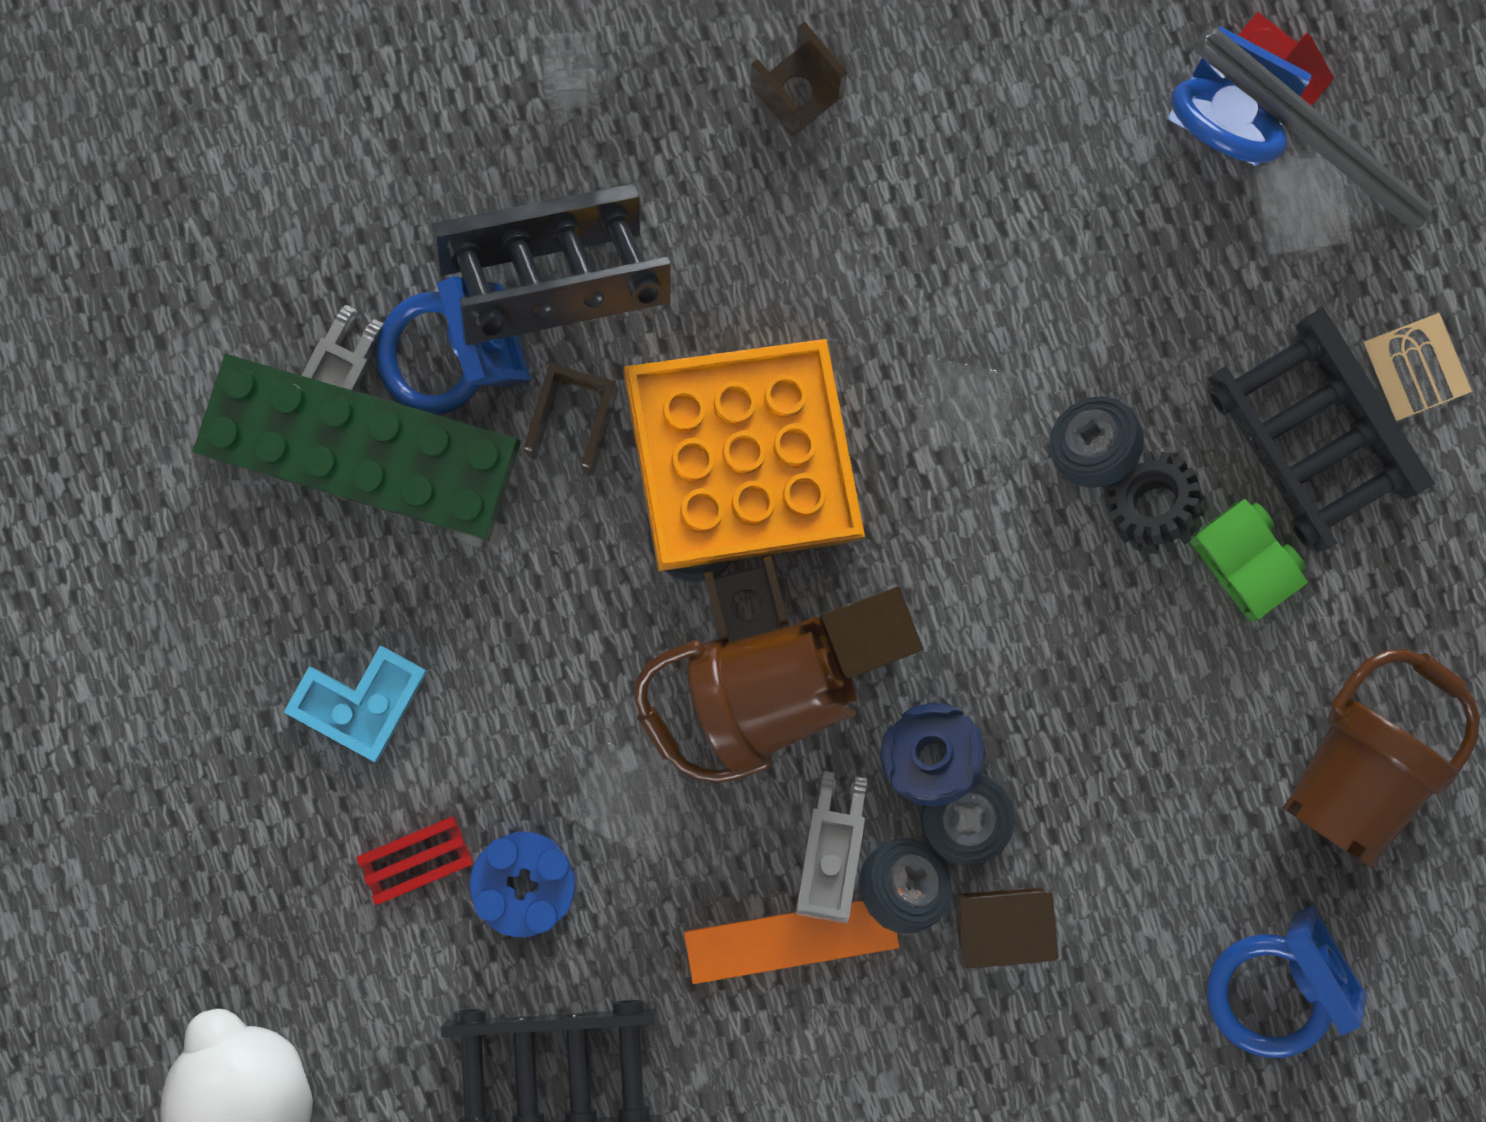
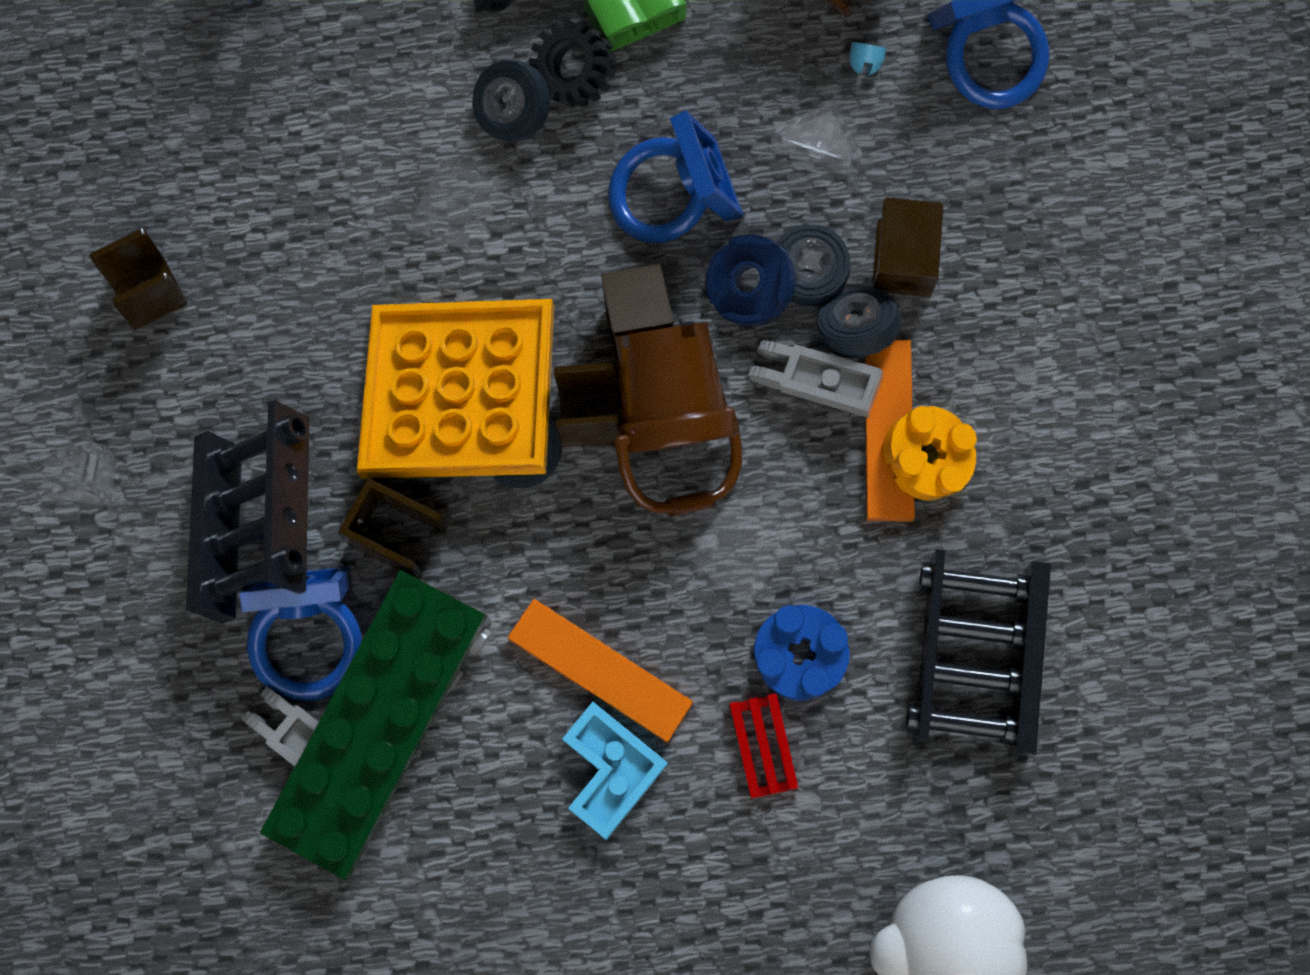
camera: 80 degrees left, 10 degrees down
(464, 671) = (600, 670): none -> orange tile
(776, 1019) = (955, 450): none -> light orange plate
(1049, 675) = (700, 171): none -> blue tile
(1122, 806) = (820, 139): none -> clear slope
(1243, 841) = (866, 53): none -> medium azure hinge

